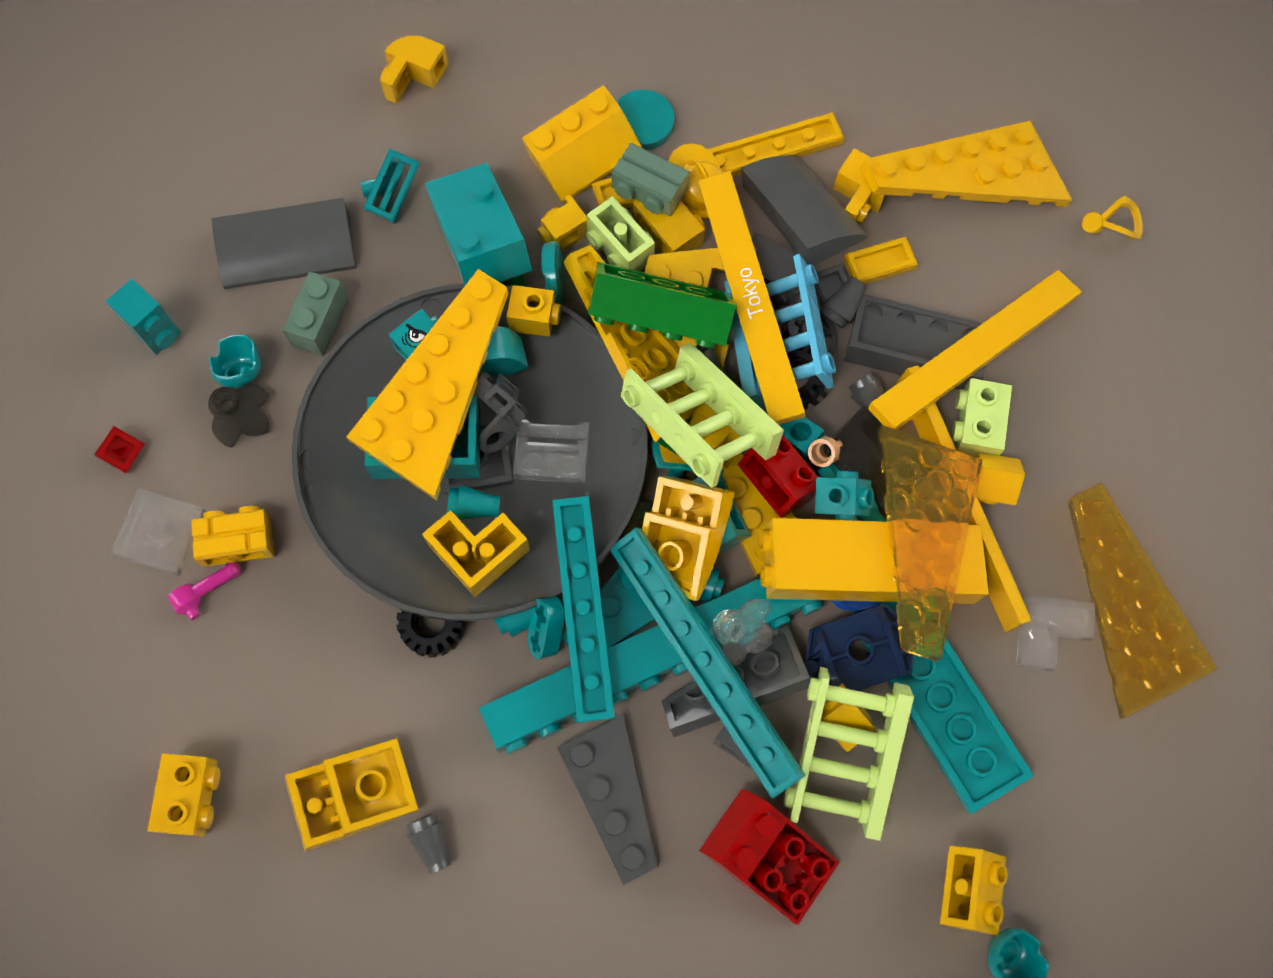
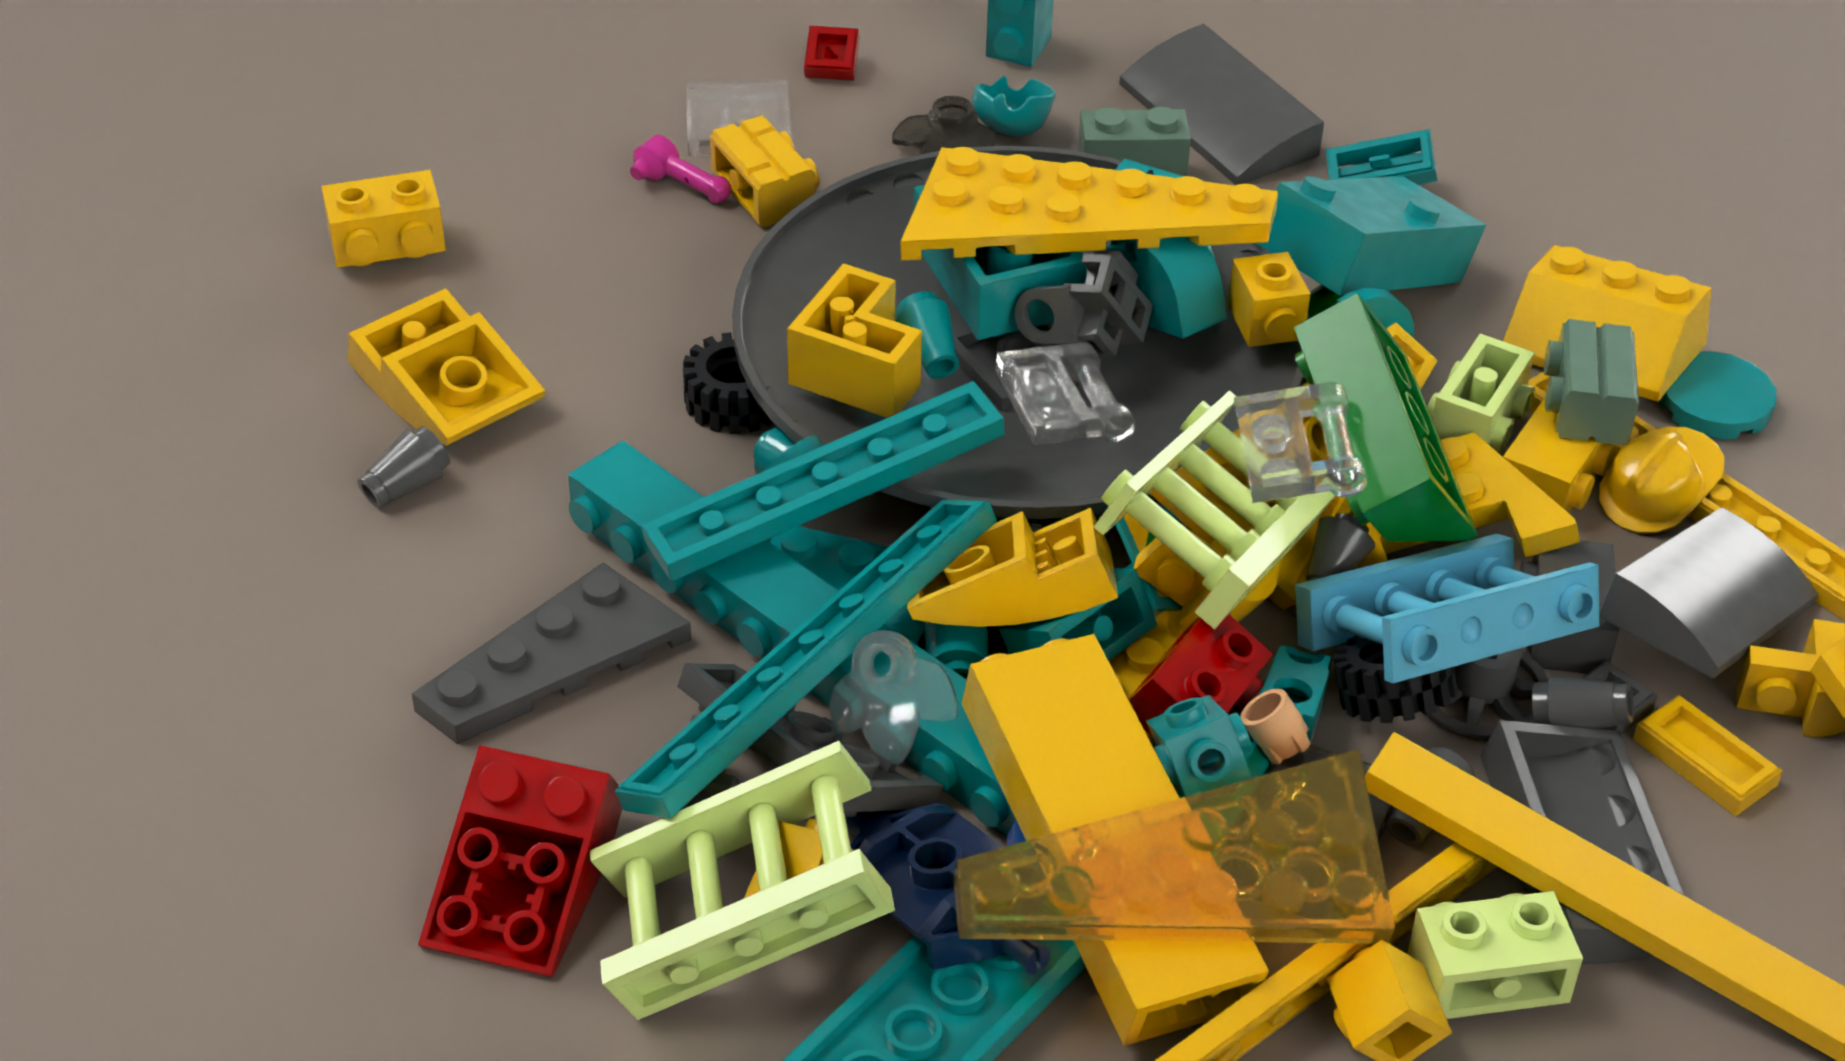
camera: 70 degrees right, 30 degrees down
(412, 59) = (1593, 131): yellow brick -> none
(563, 224) = (1450, 335): yellow brick -> none
(677, 366) = (1278, 449): none -> clear plate
(752, 299) = (1470, 537): yellow tile -> none

